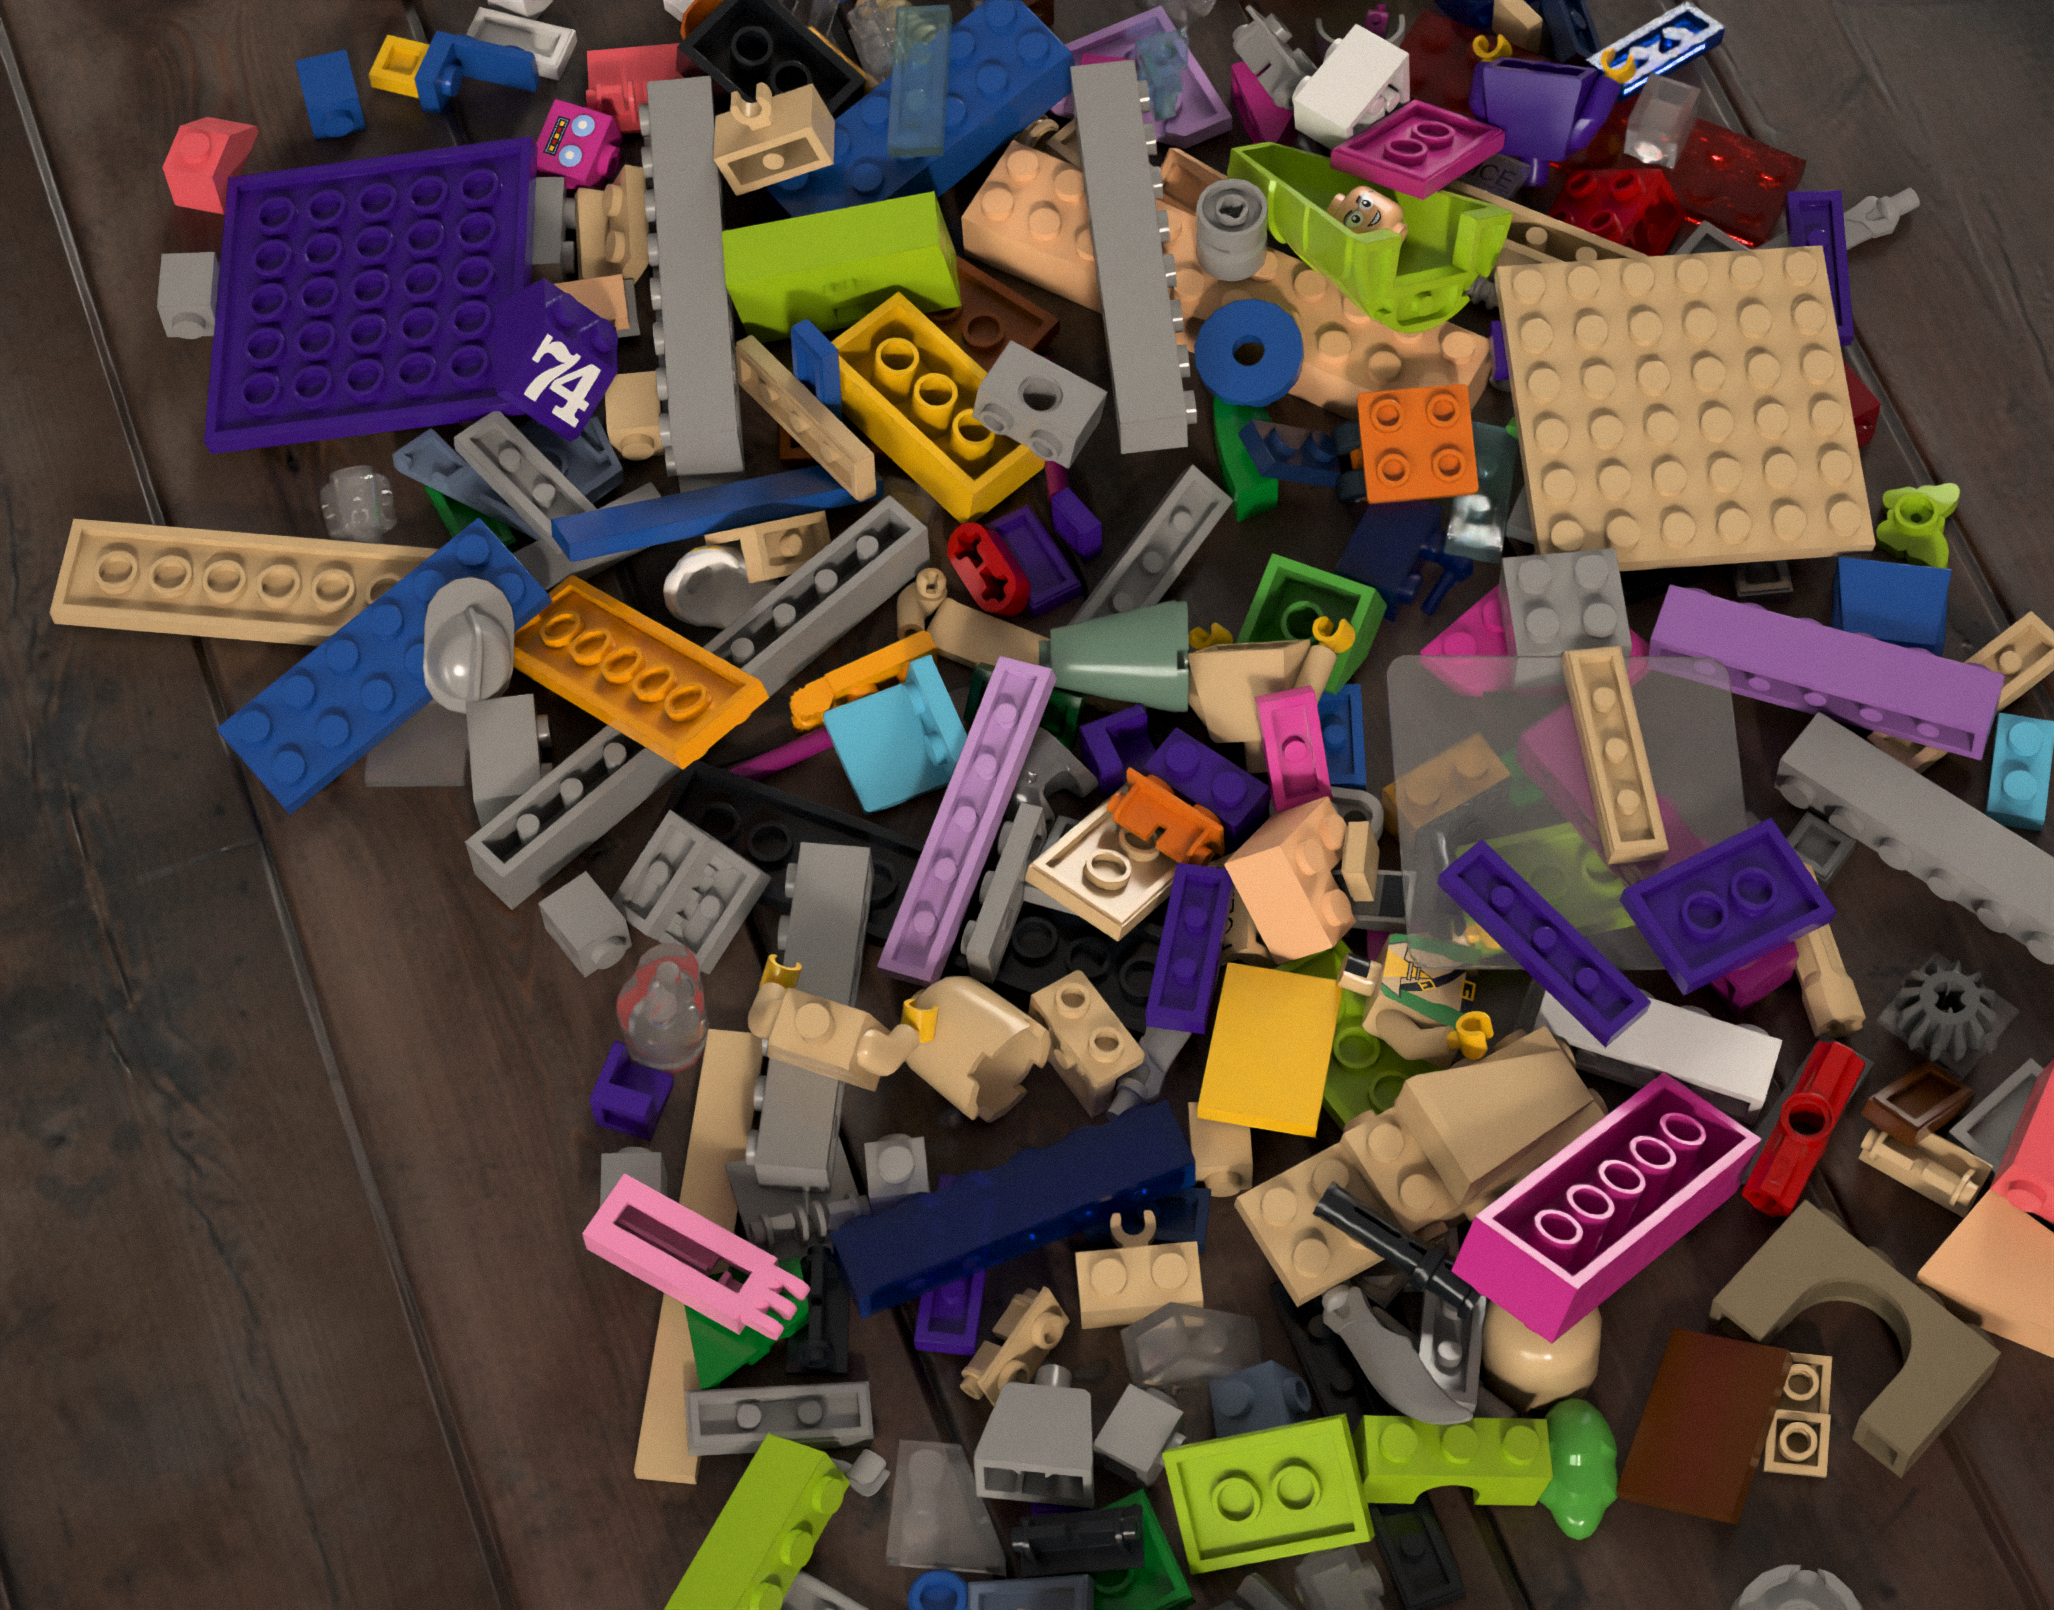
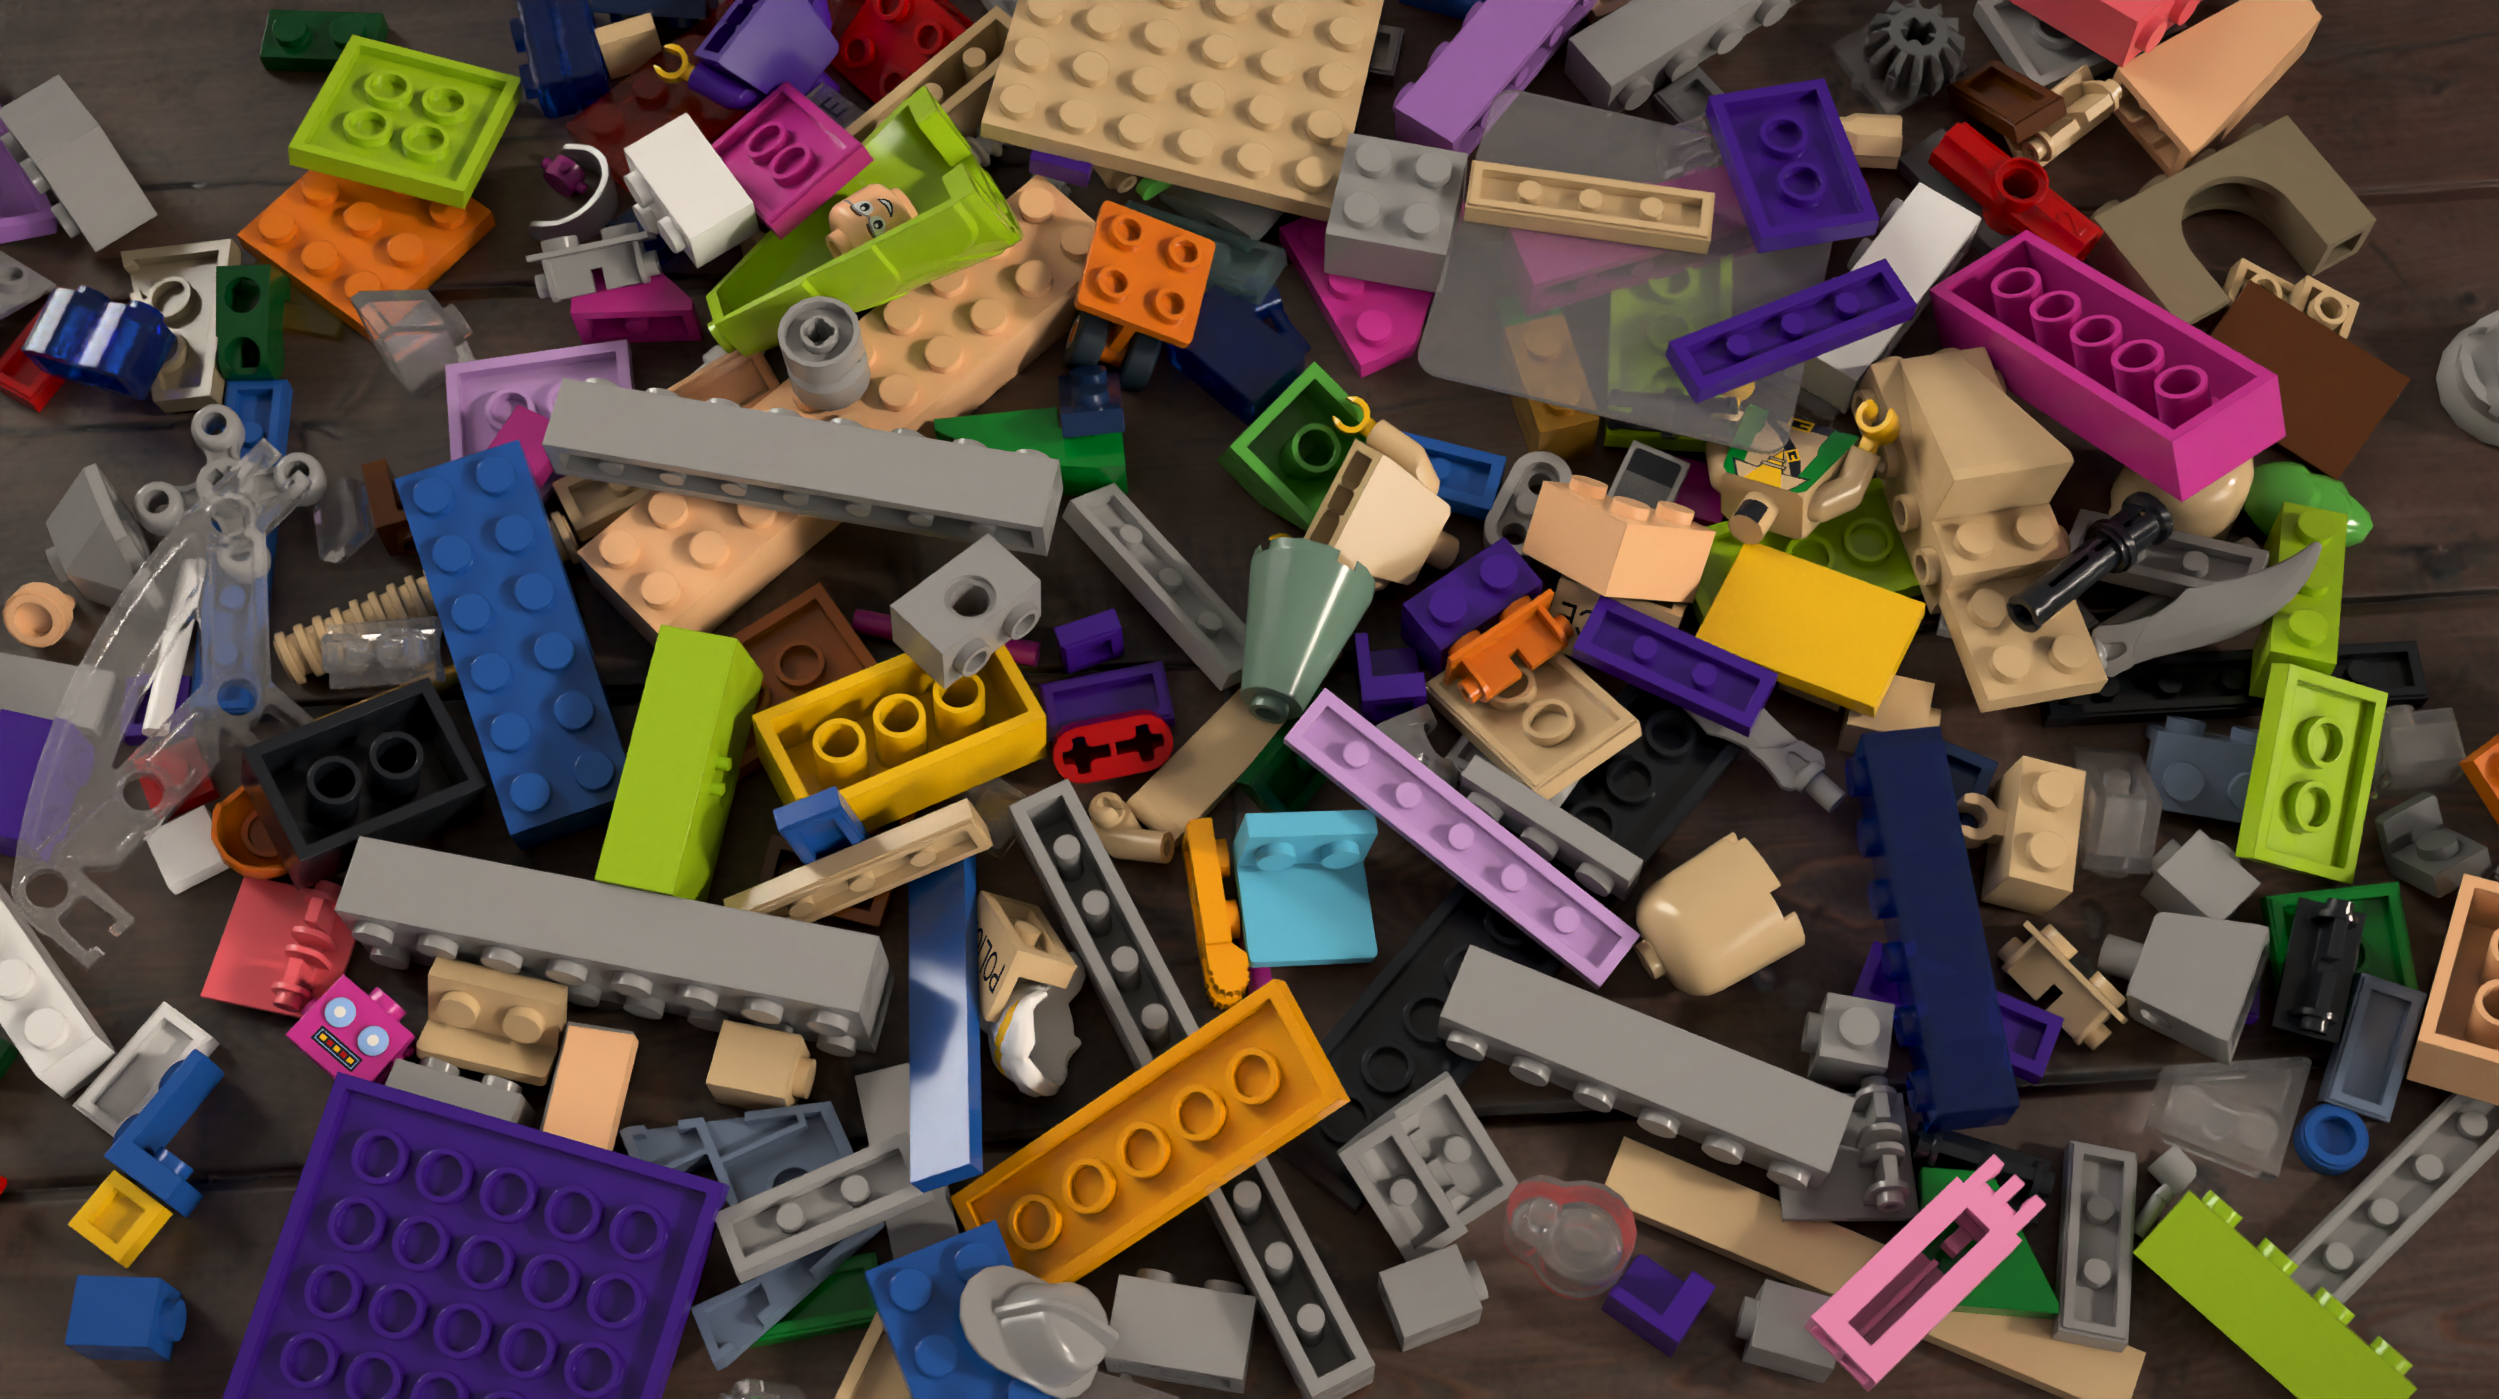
camera: 75 degrees left, 5 degrees up
(553, 357) = (678, 1122): dark purple slope -> none
(773, 137) = (483, 790): tan brick -> none
(831, 1035) = (1724, 1045): tan torso -> none
(919, 81) = (482, 606): clear light blue tile -> none
(1086, 1040) = (1750, 796): tan bracket -> none
(1159, 62) = (539, 382): clear light blue bracket -> none
(1249, 323) = (975, 360): blue tile -> none
(1293, 747) = (1474, 494): dark pink plate -> none
(1360, 861) = (1621, 476): tan tile -> none

